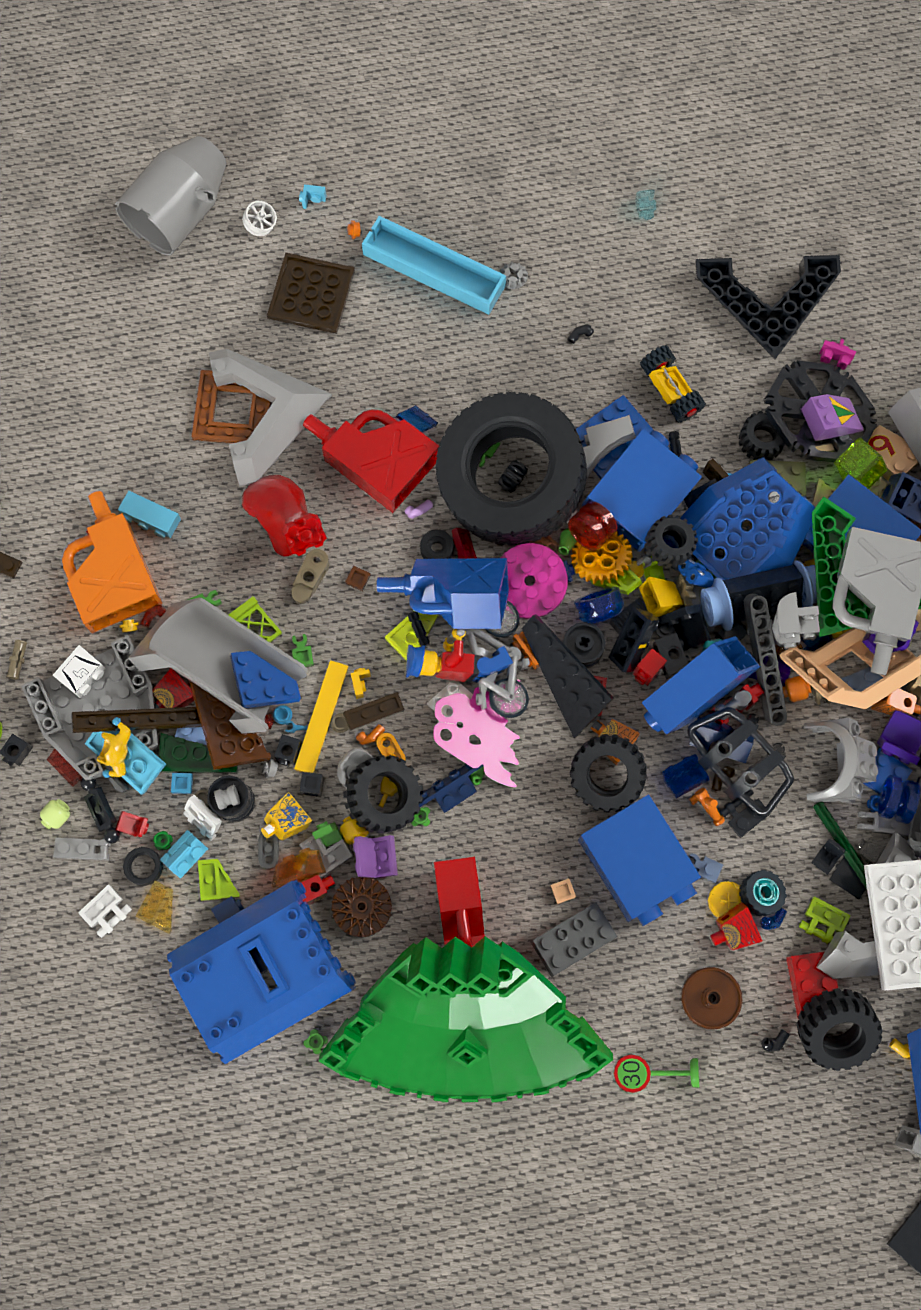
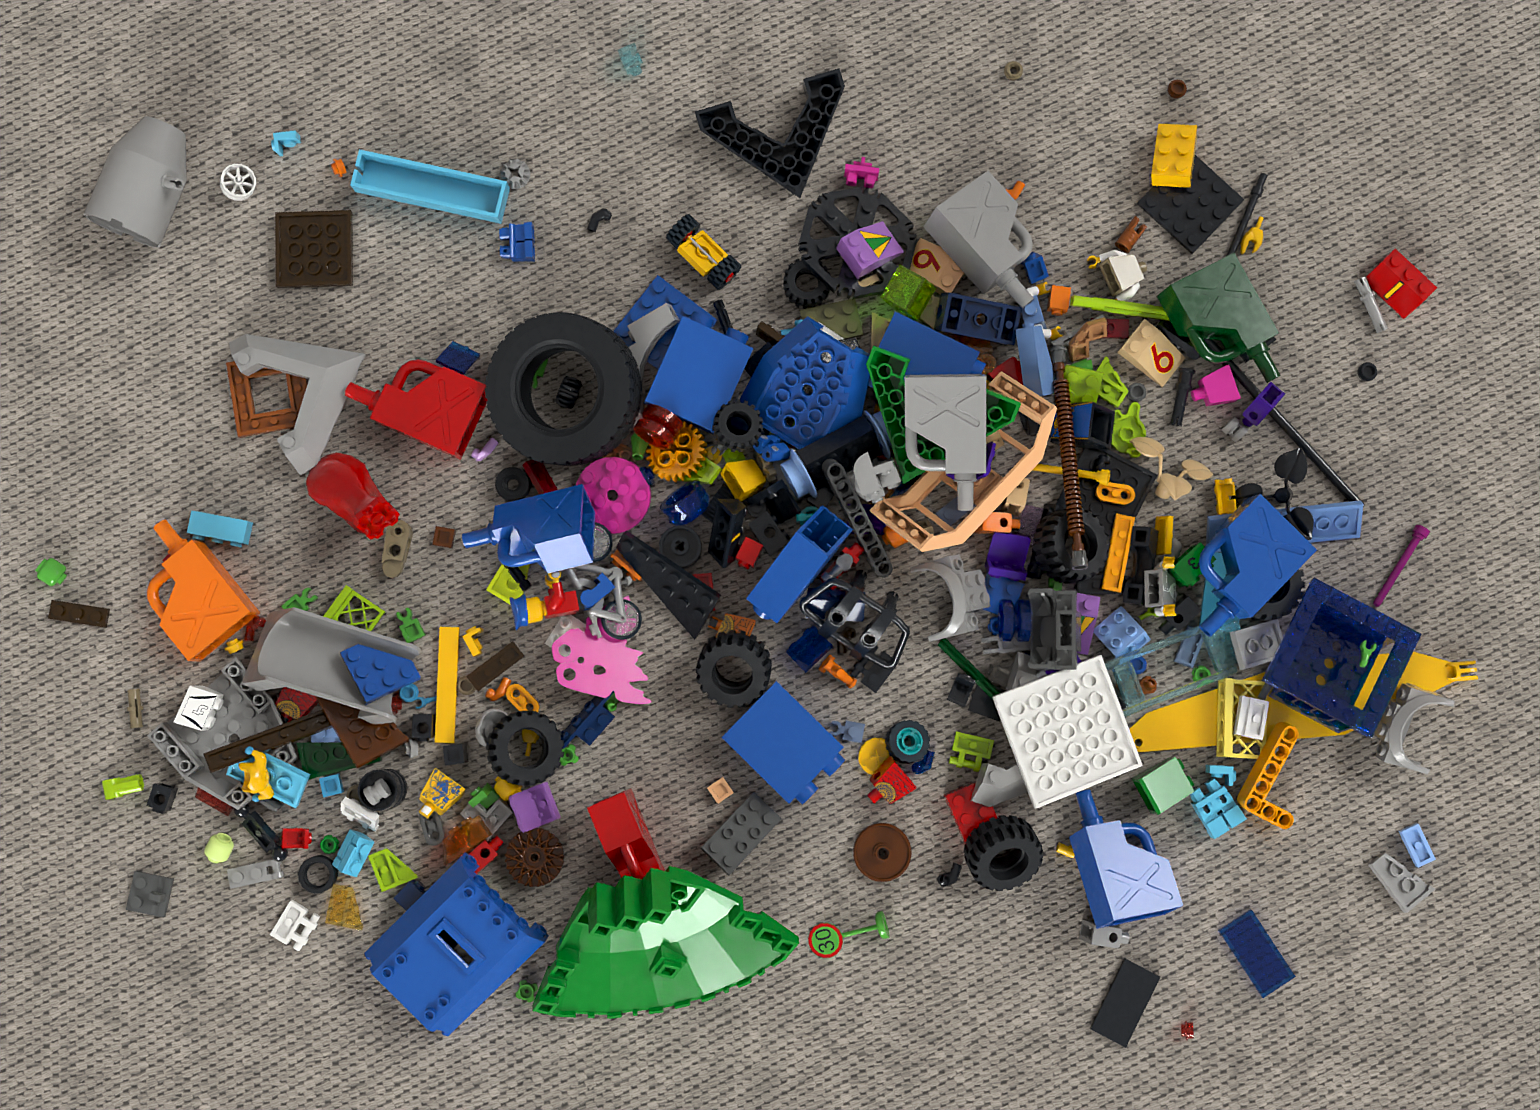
camera: 10 degrees left, 10 degrees up
(503, 335) = (521, 242): none -> blue hips

